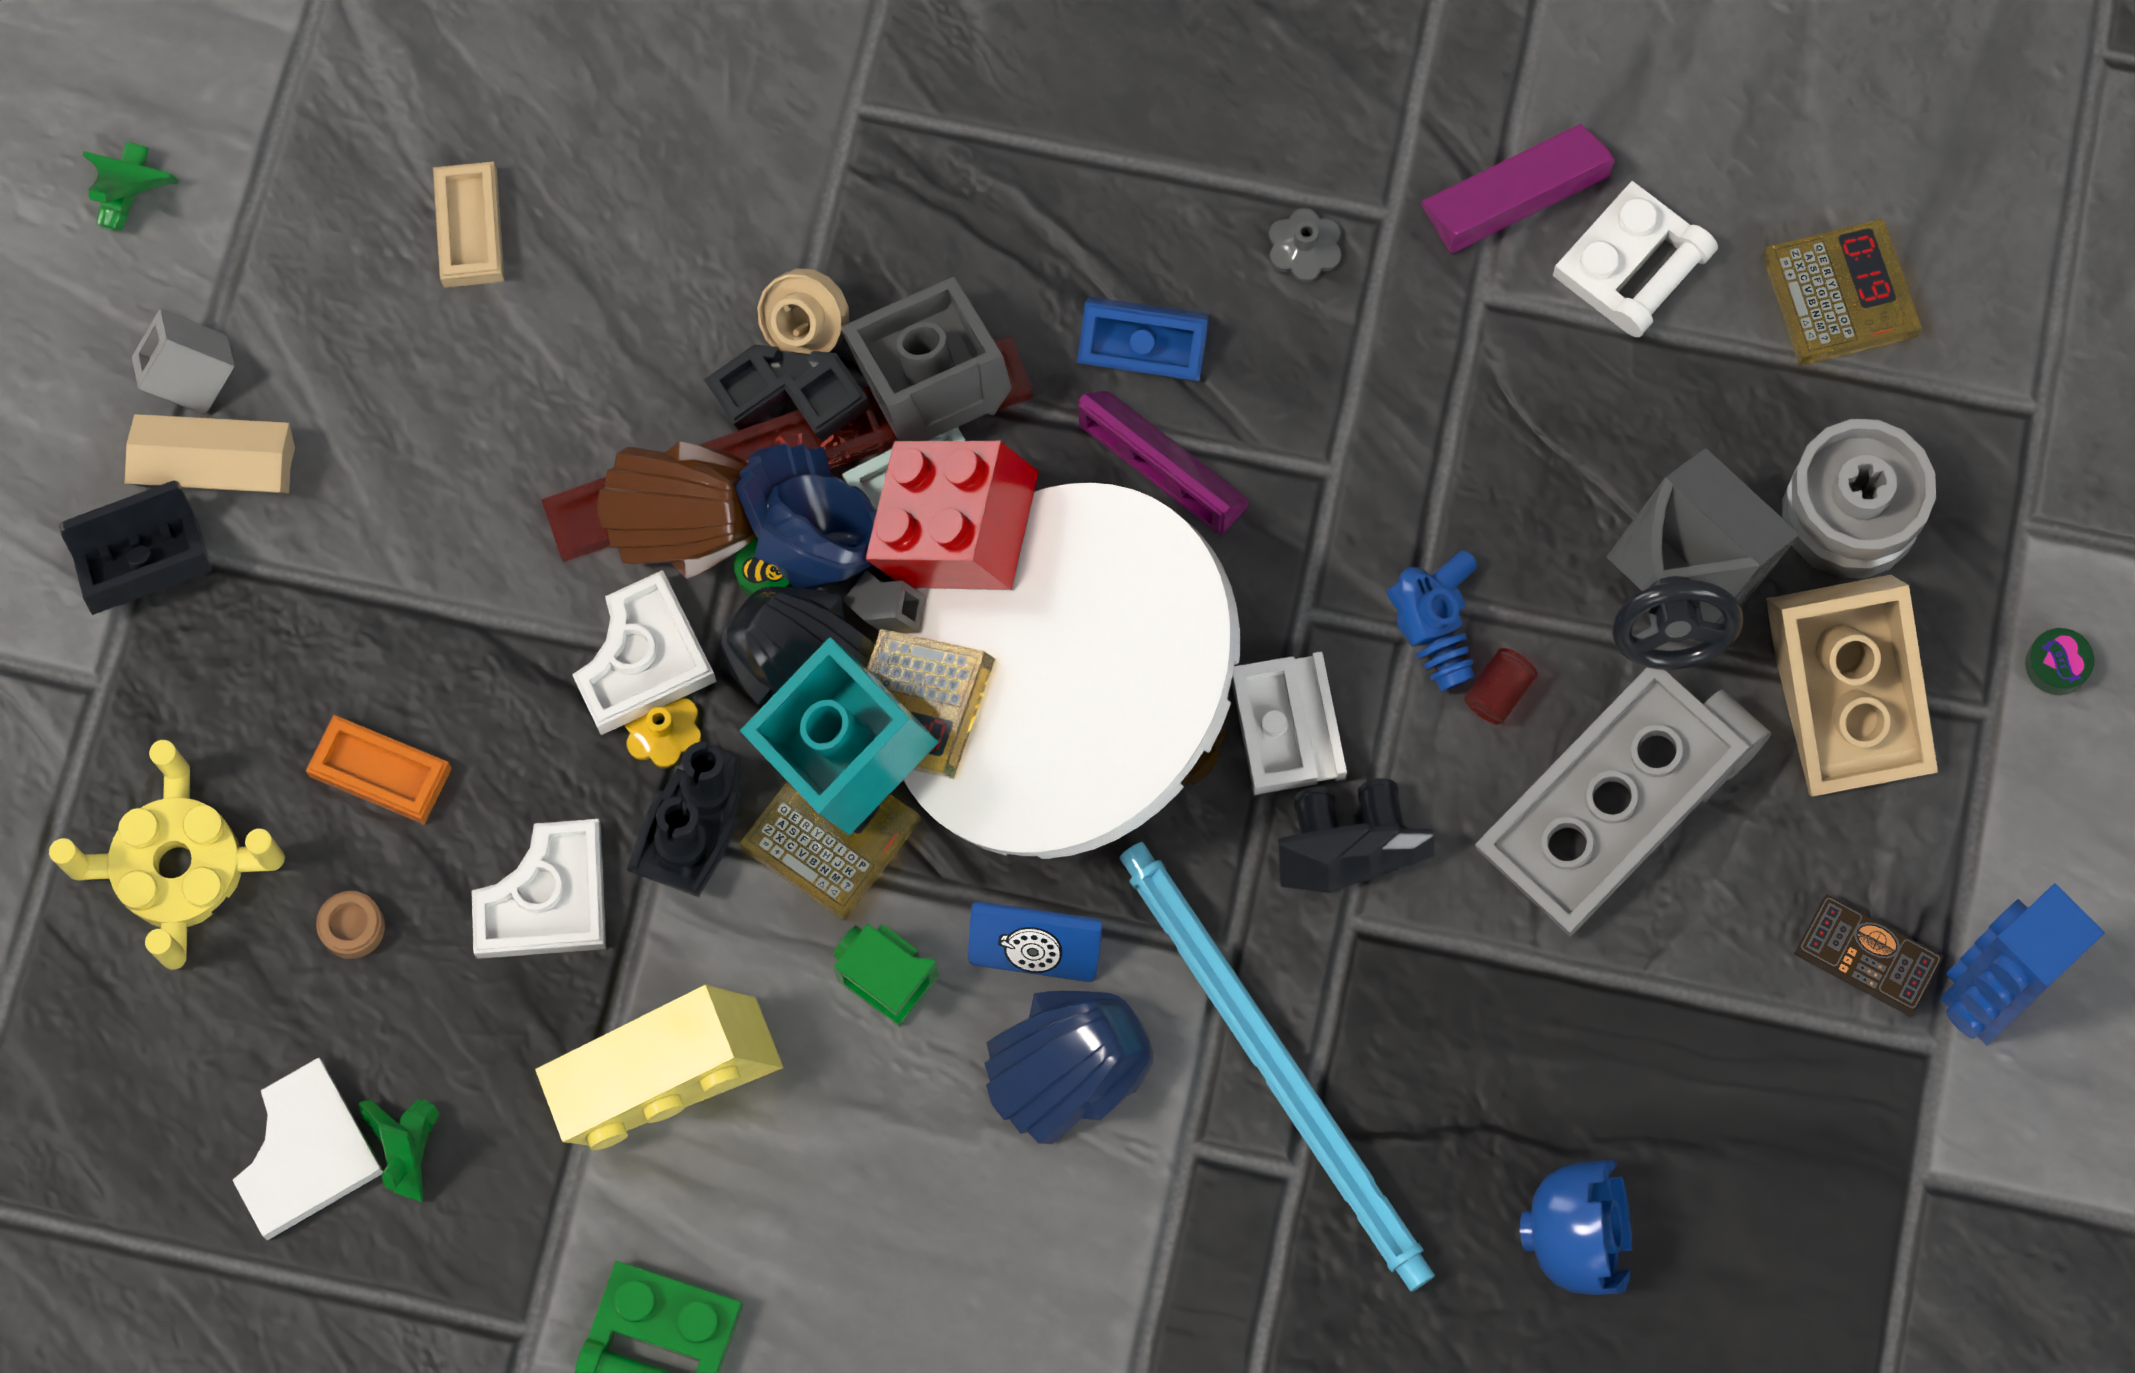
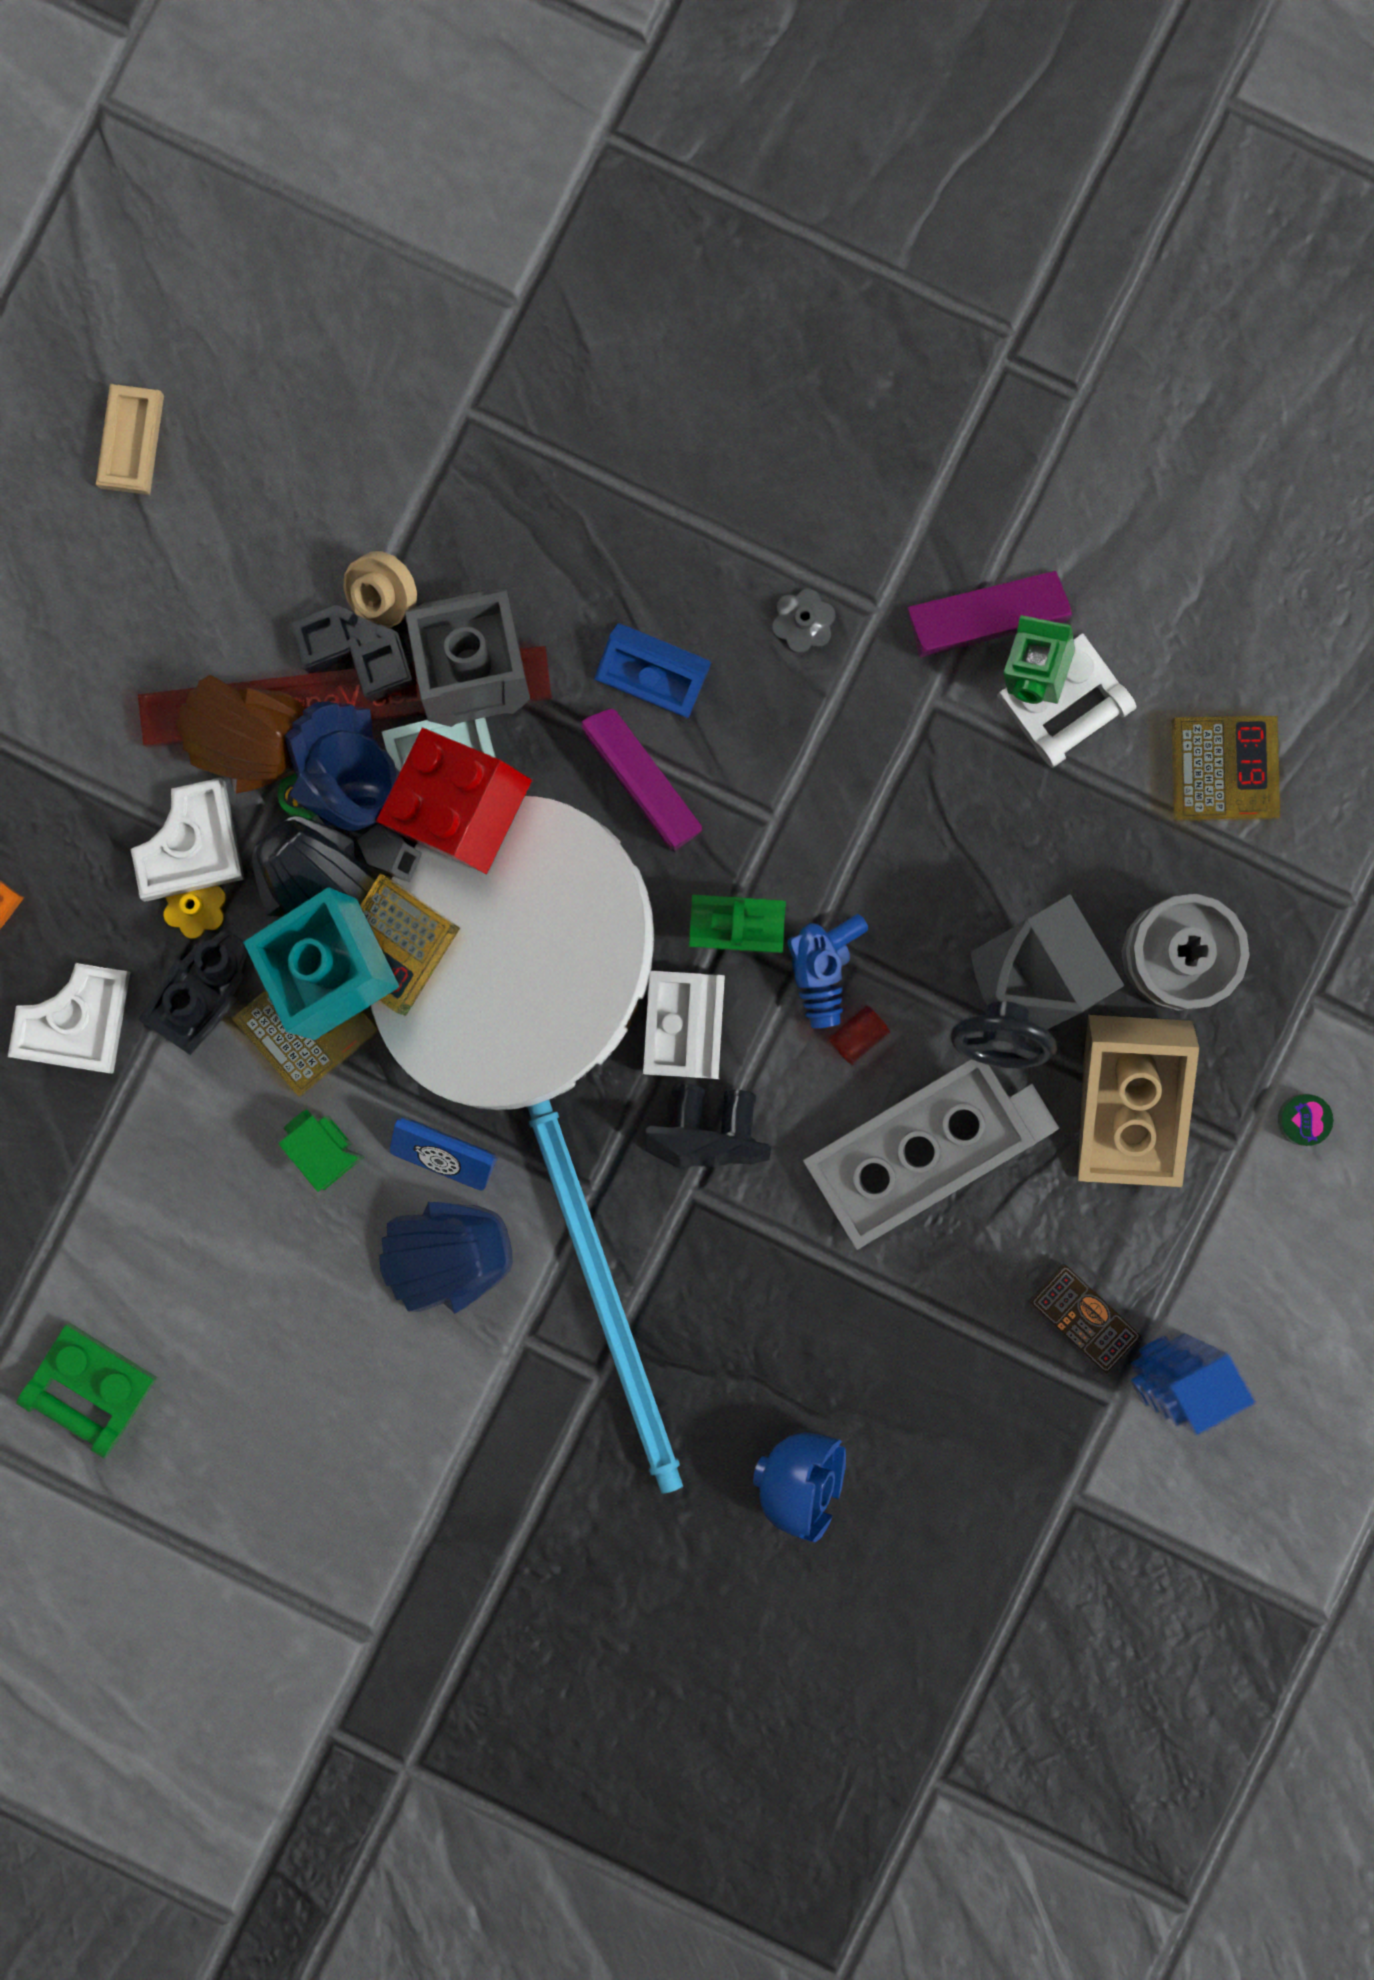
camera: 10 degrees right, 15 degrees up
(658, 1066) = (129, 1186): light yellow wedge -> none
(1321, 588) = (737, 923): none -> green hips
(1592, 211) = (1039, 660): none -> green window

